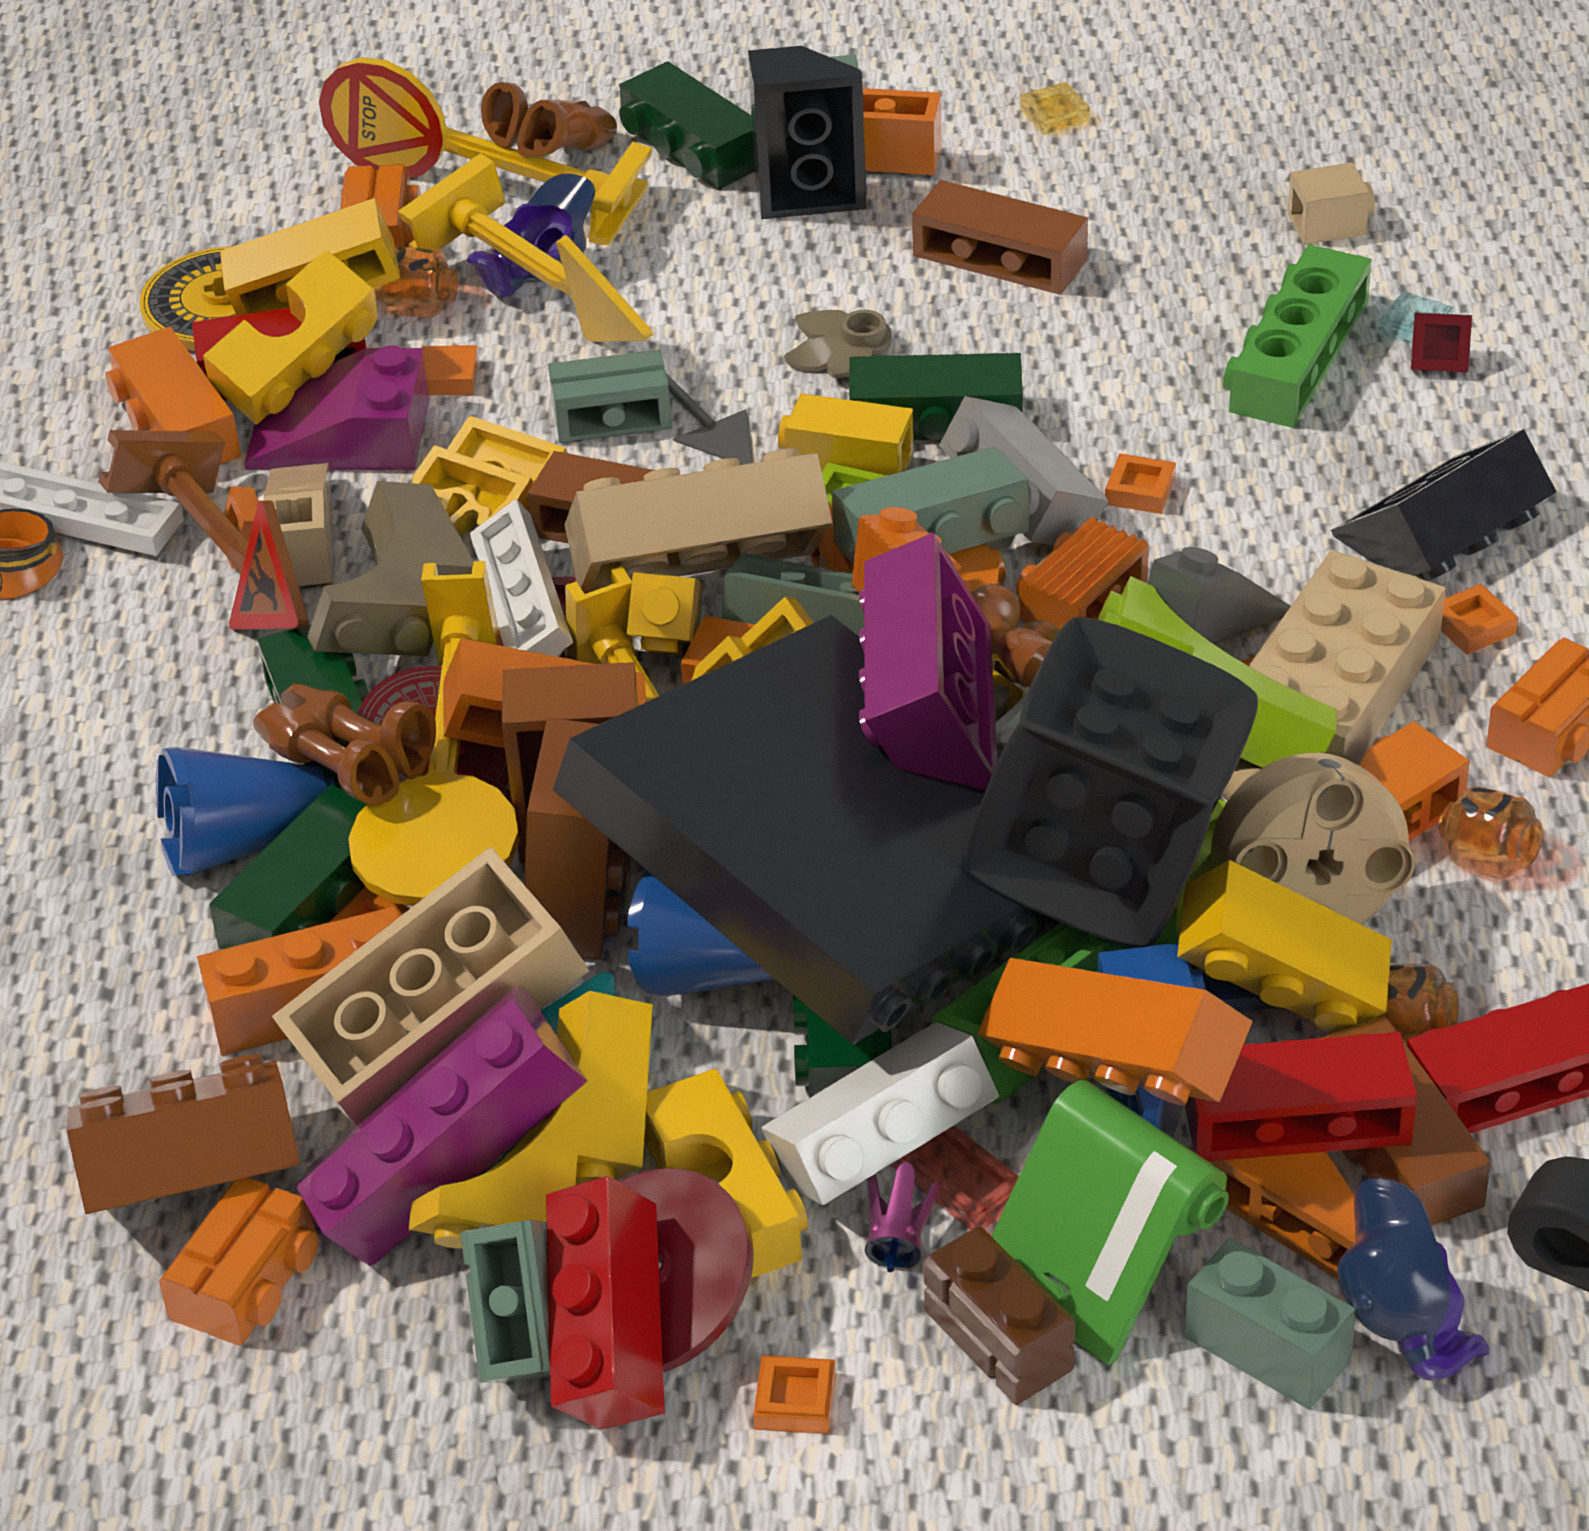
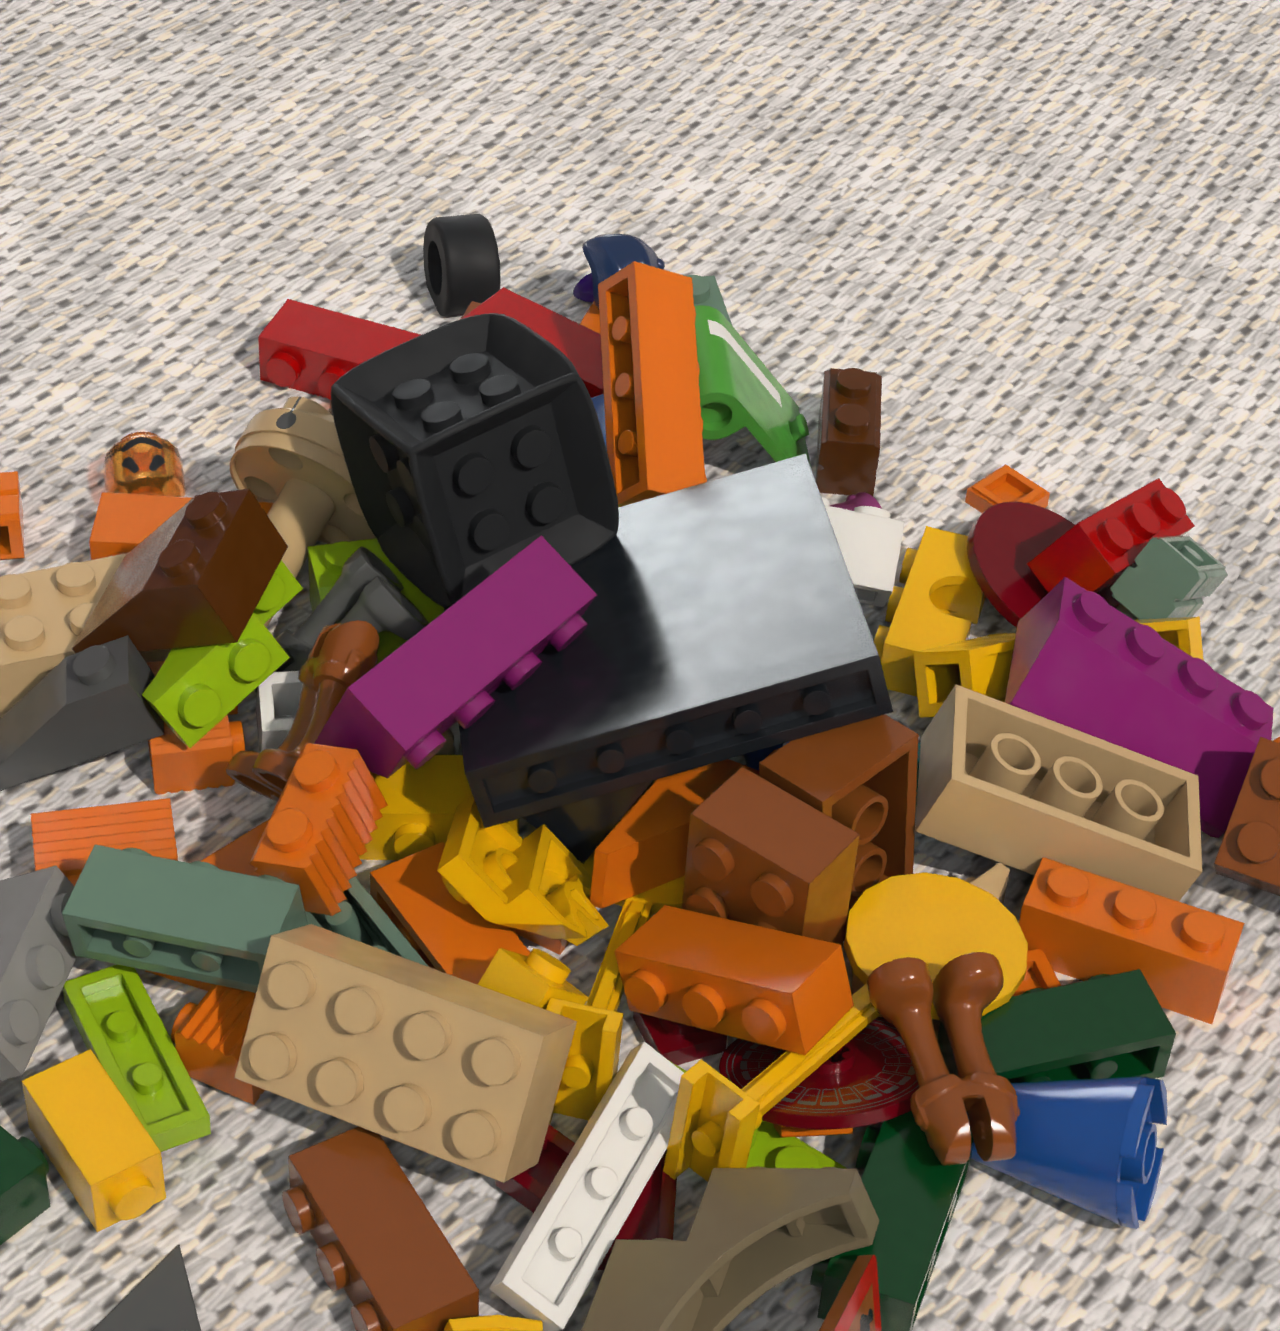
camera: 145 degrees left, 0 degrees up
(1193, 604) = (191, 577): none -> reddish brown slope

